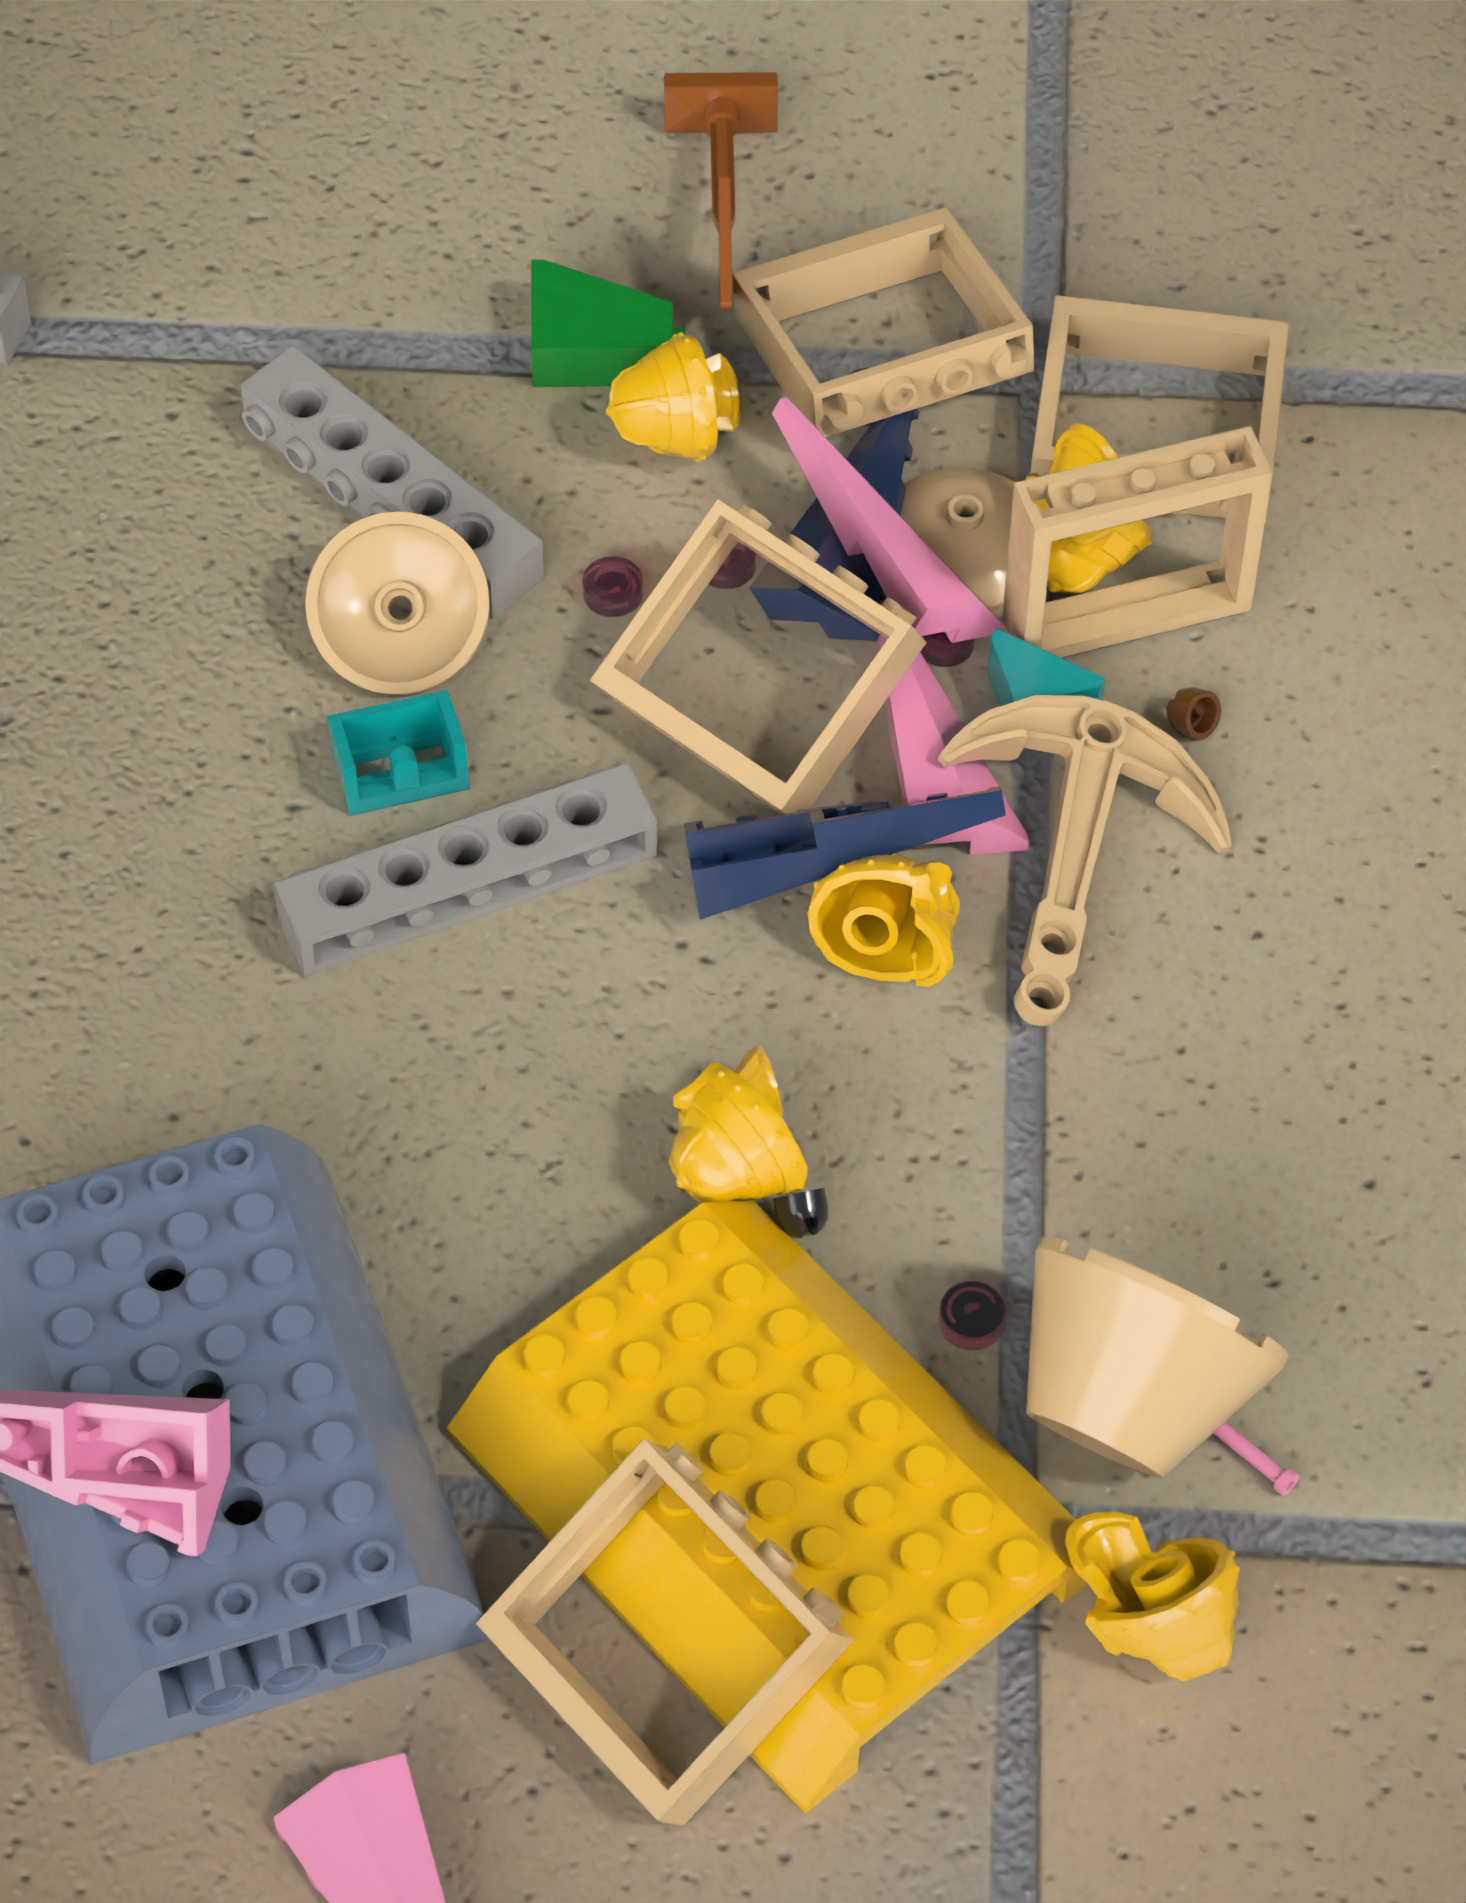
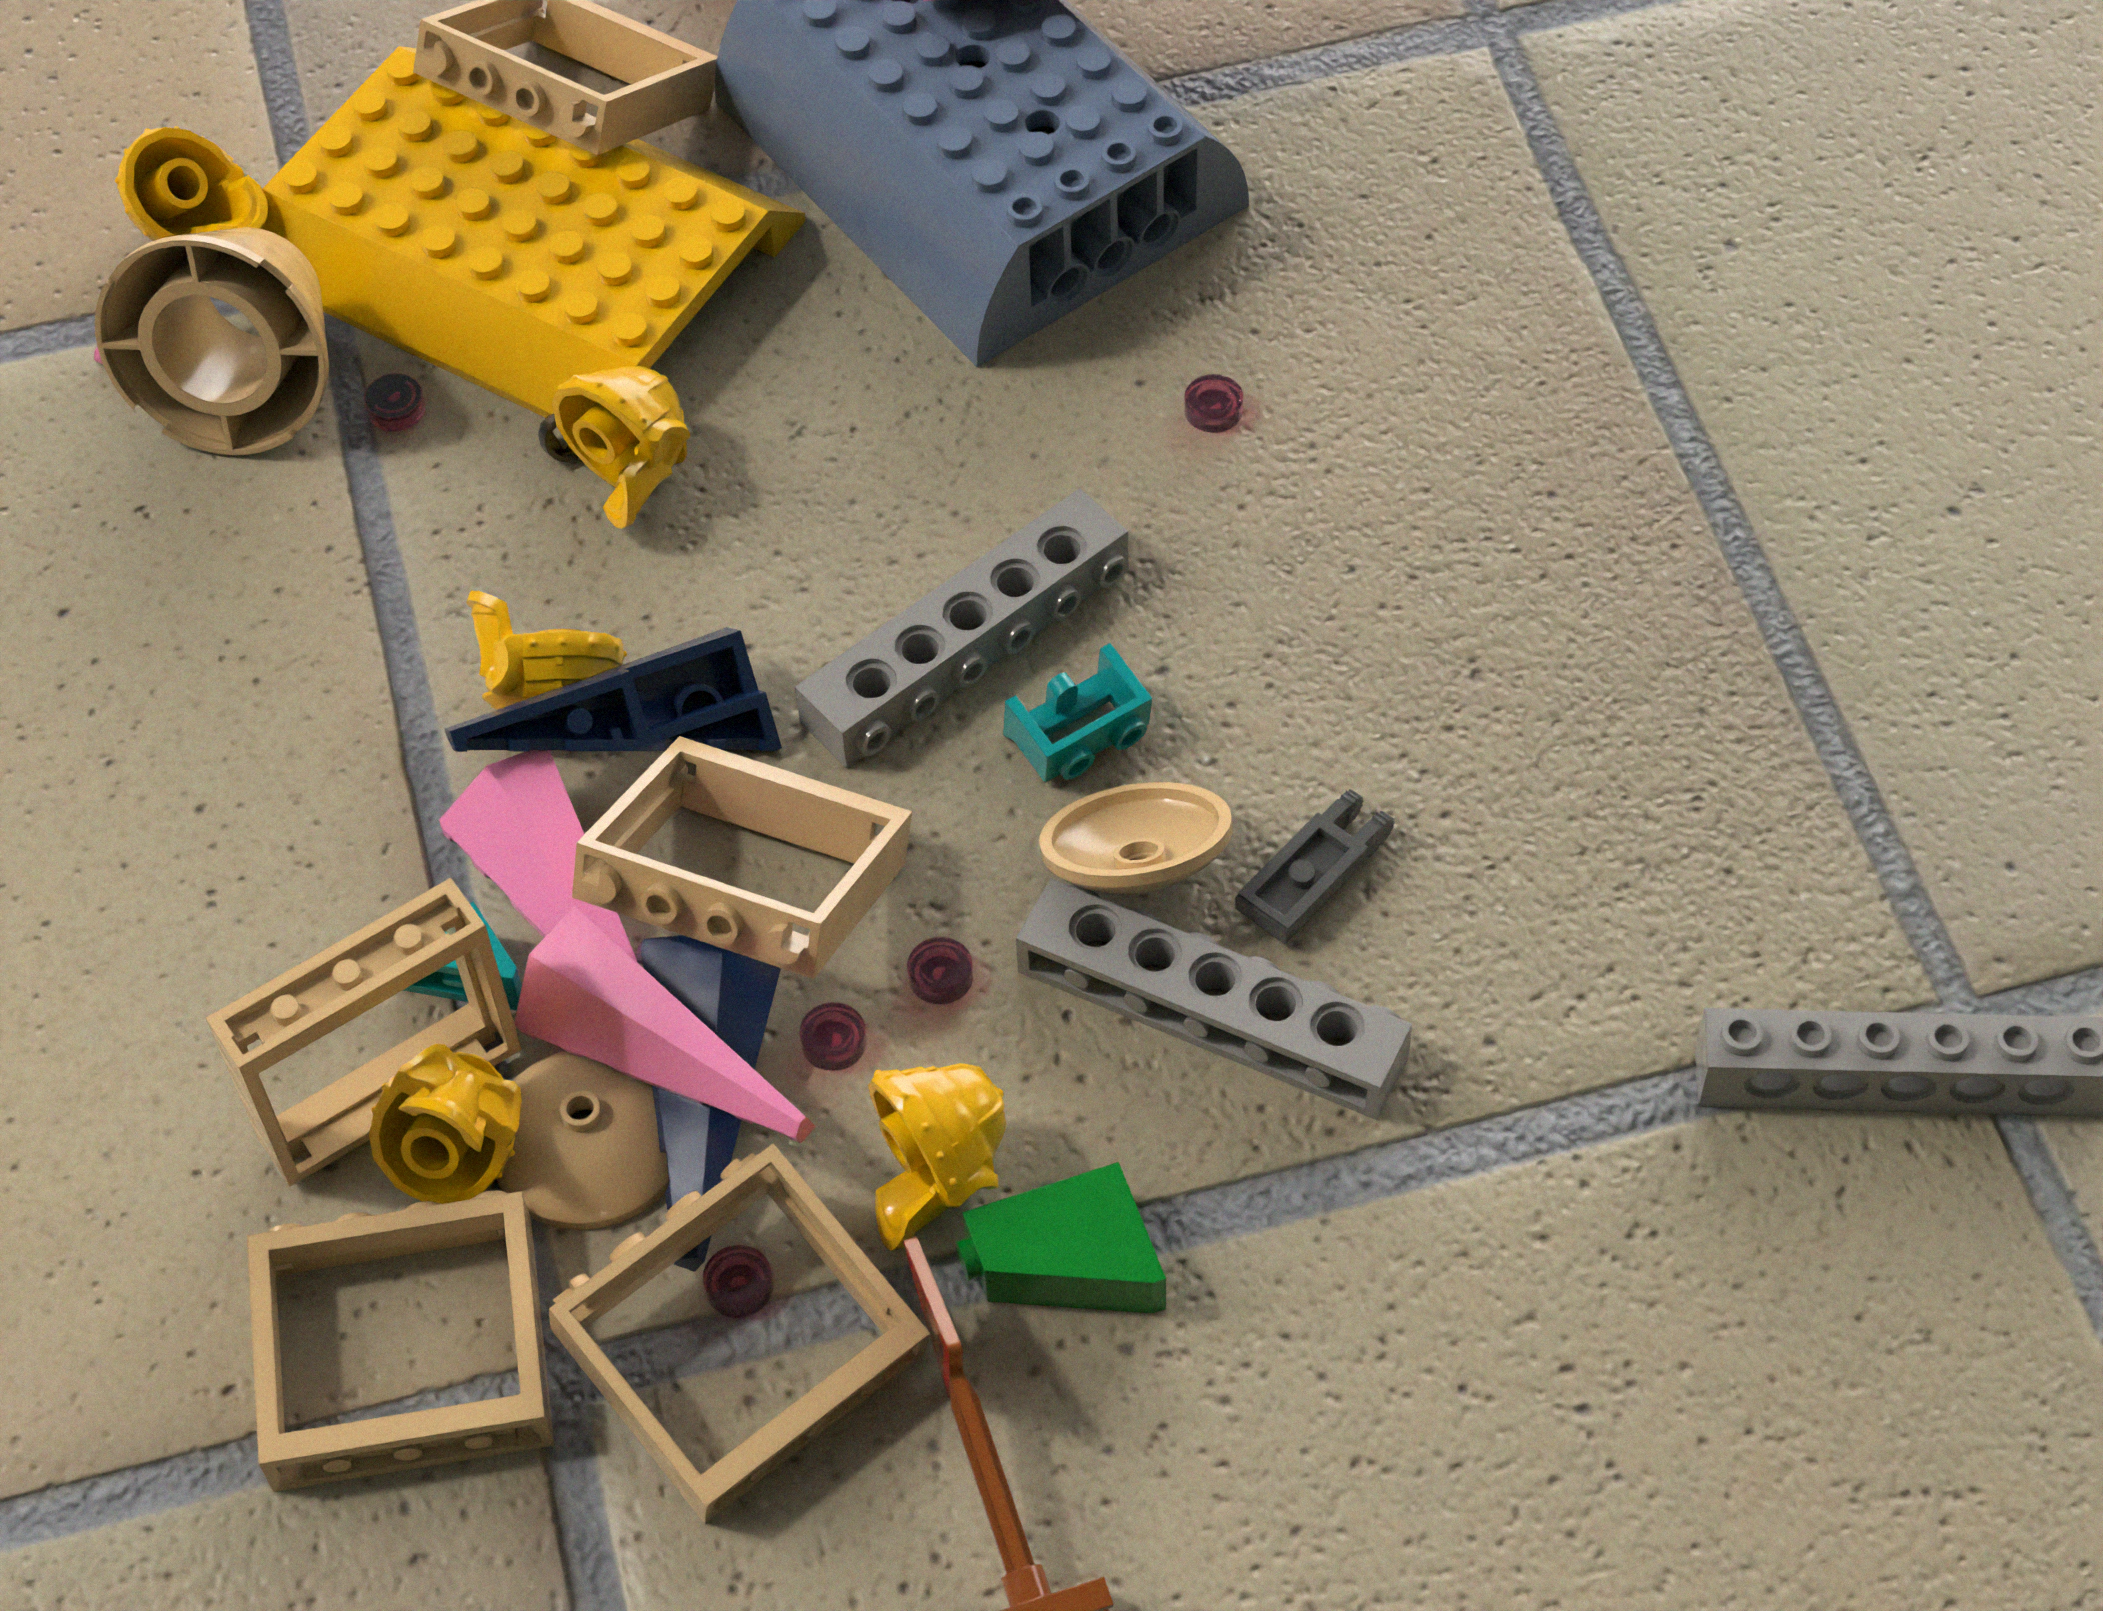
camera: 165 degrees right, 0 degrees up
(110, 1057) = (1213, 403): none -> clear pink tile
(242, 571) = (1311, 868): none -> dark grey hinge
(1090, 776) = (385, 832): tan piece -> none

